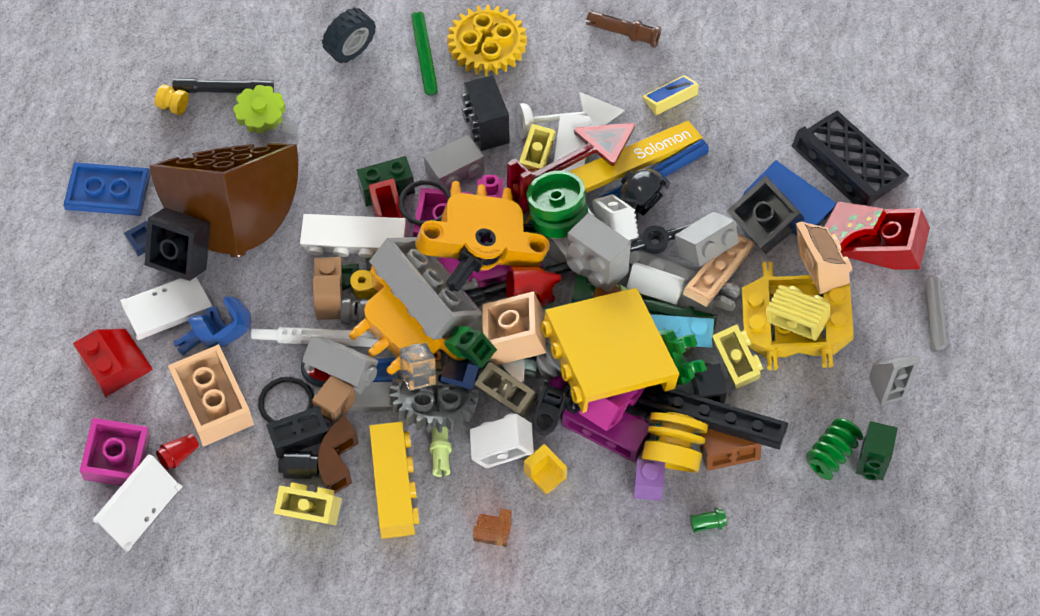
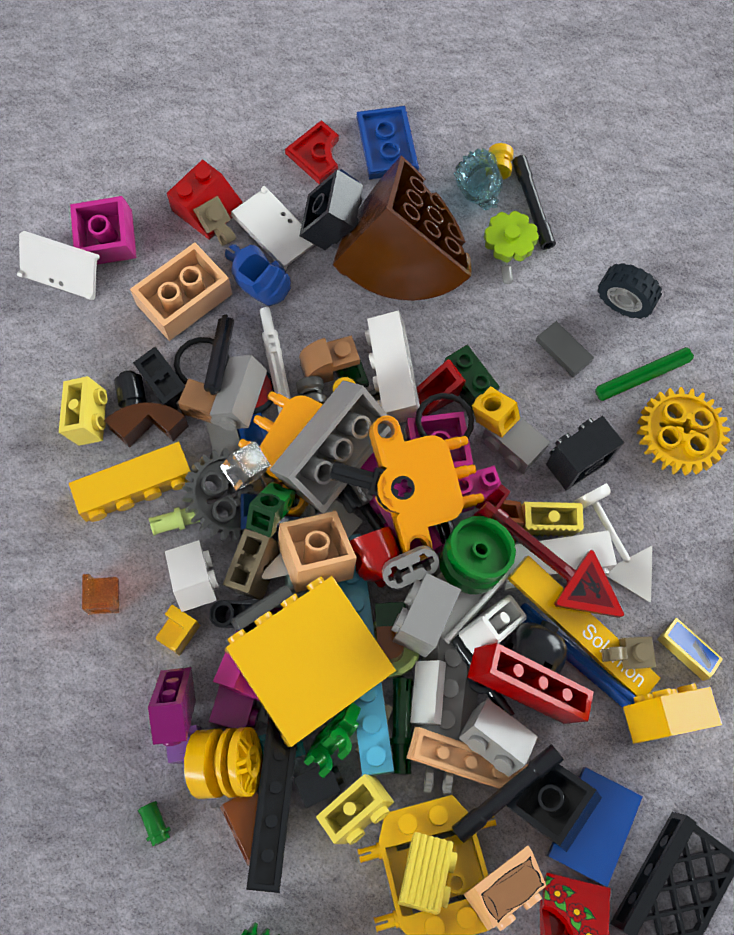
camera: 70 degrees right, 10 degrees up
(93, 254) = (314, 152): none -> red tile
(138, 351) = (213, 217): none -> dark tan plate
(176, 451) = (120, 280): red cone -> none
(187, 117) = (480, 178): none -> clear light blue hair
(292, 372) = (219, 355): none -> black axle
(379, 104) = (564, 349): none -> dark grey tile
(429, 152) = (496, 411): none -> yellow brick
(553, 378) = (261, 607): none -> dark grey tile
(556, 254) = (413, 573): none -> light grey beam
(617, 467) = (172, 706): none -> magenta brick
(664, 128) = (633, 652): none -> dark tan plate
(671, 201) = (530, 684): none -> red brick
(720, 115) = (671, 713): none -> yellow brick
(764, 266) = (479, 816): none -> black piece

